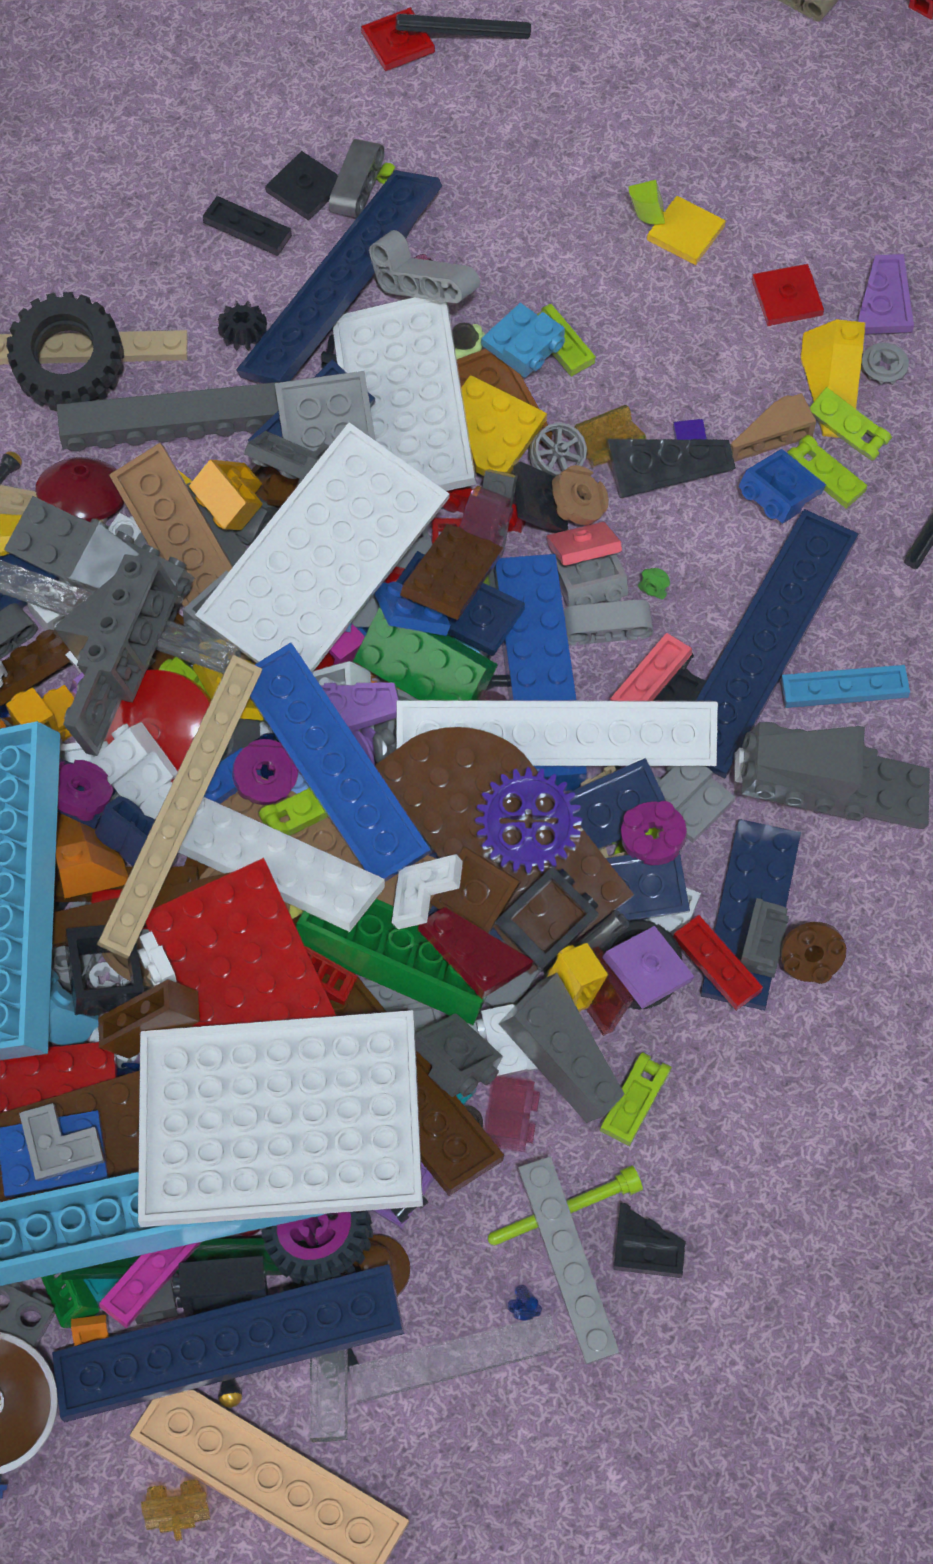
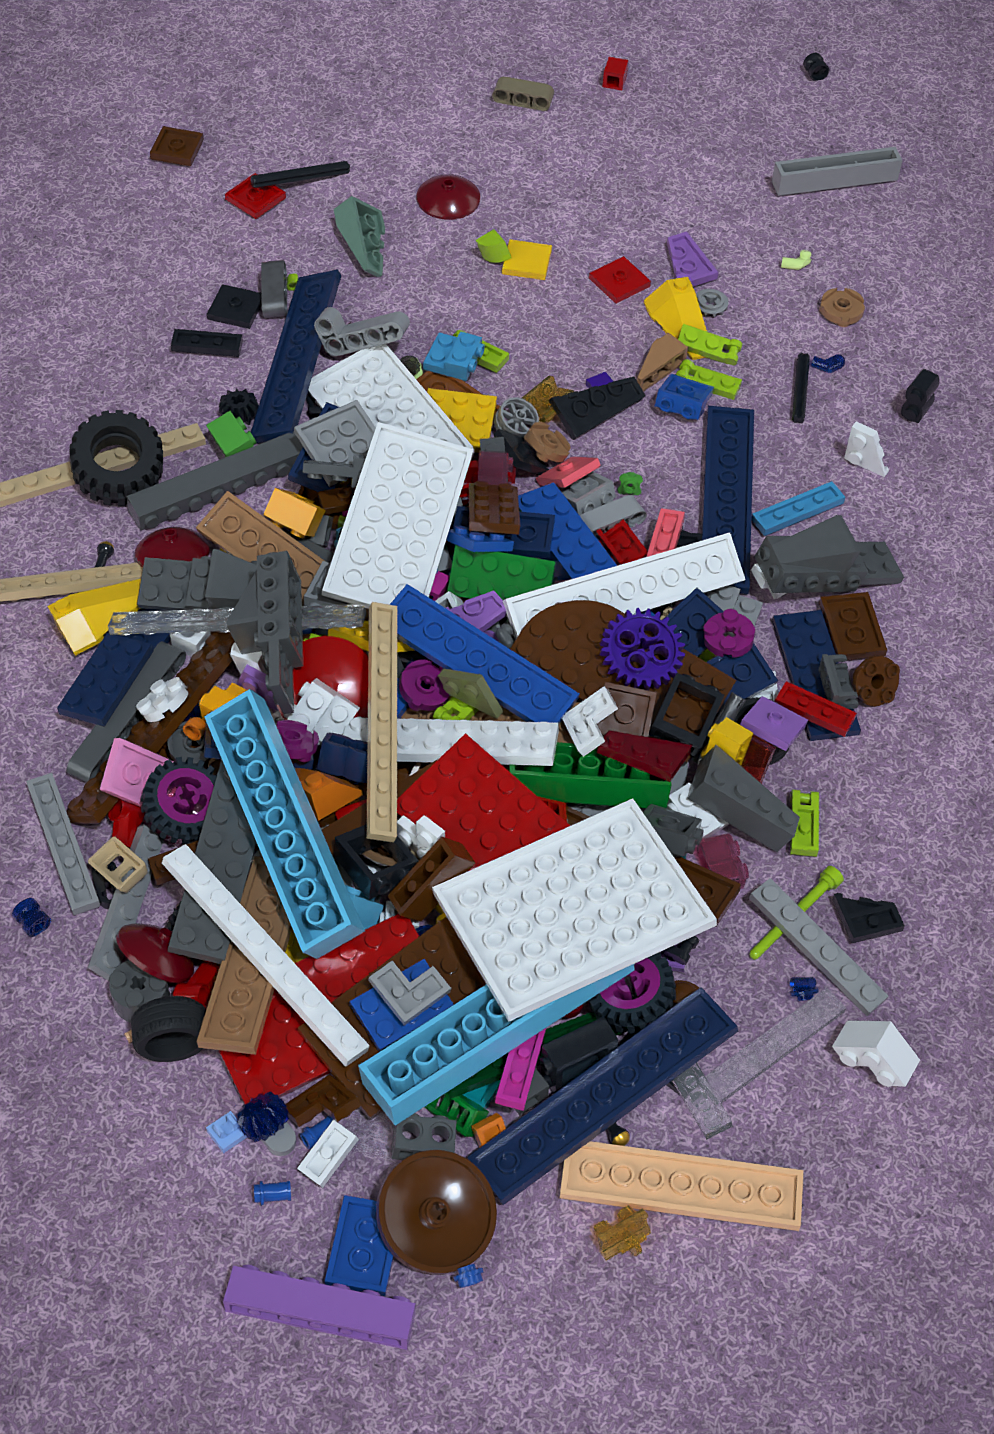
camera: 25 degrees left, 10 degrees down
(213, 362) = (230, 434): none -> bright green brick
(304, 802) = (470, 689): none -> olive wing
(500, 127) = (362, 230): none -> sand green wedge
(563, 1415) = (879, 1048): none -> white brick
(601, 663) = (622, 543): none -> red bracket
(633, 110) = (448, 197): none -> dark red dish
(828, 867) = (853, 625): none -> reddish brown plate

